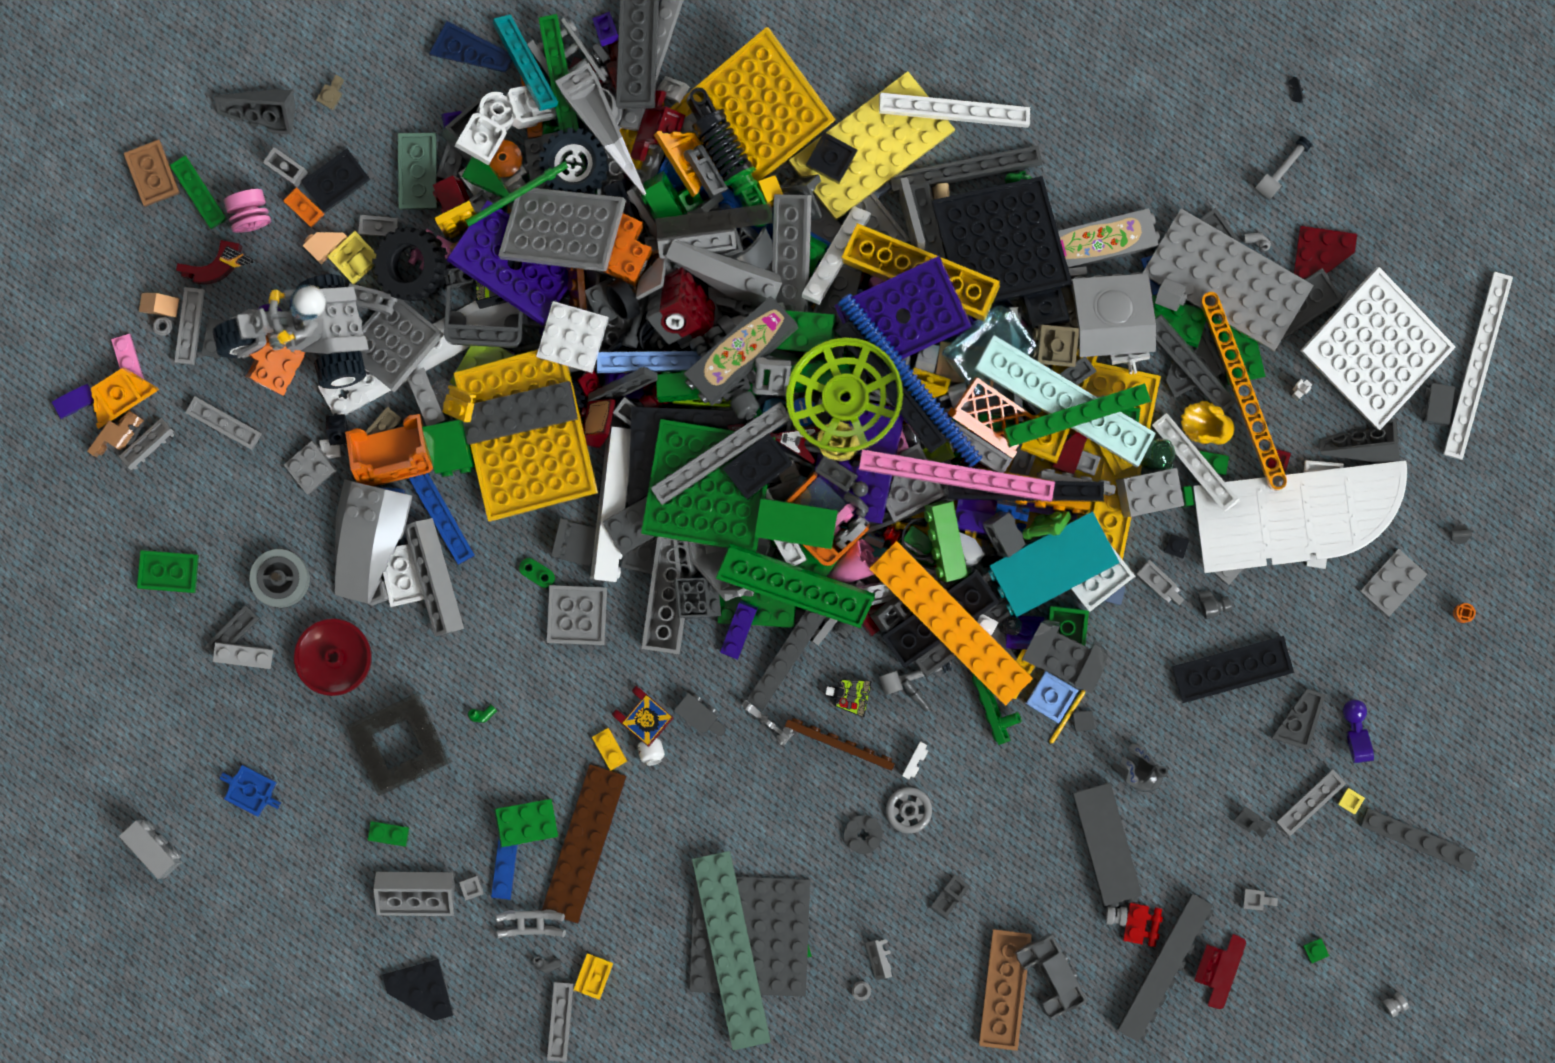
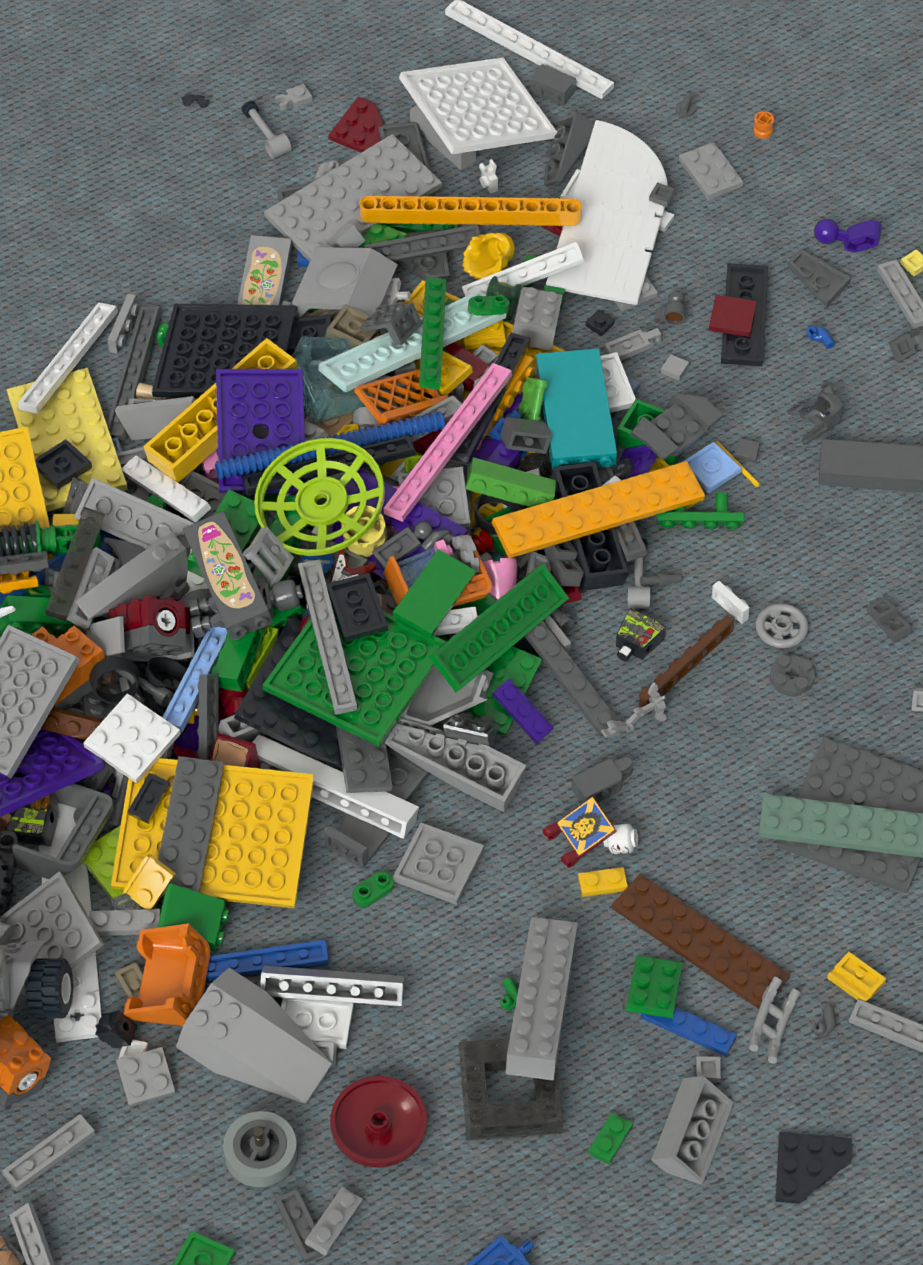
camera: 75 degrees left, 30 degrees down
(473, 743) = (541, 999): none -> light grey brick
(527, 373) = (149, 798): none -> black plate
(1014, 139) = (123, 323): none -> light grey plate
(1071, 377) = (399, 320): none -> dark grey bracket
(1135, 449) = (488, 305): none -> green plate
(1151, 628) = (674, 367): none -> light grey tile
(1221, 661) = (732, 315): none -> dark red tile
(1236, 743) = (820, 334): none -> blue arm
(1336, 552) = (662, 194): none -> dark grey tile
(1338, 178) = (296, 96): none -> light grey plate

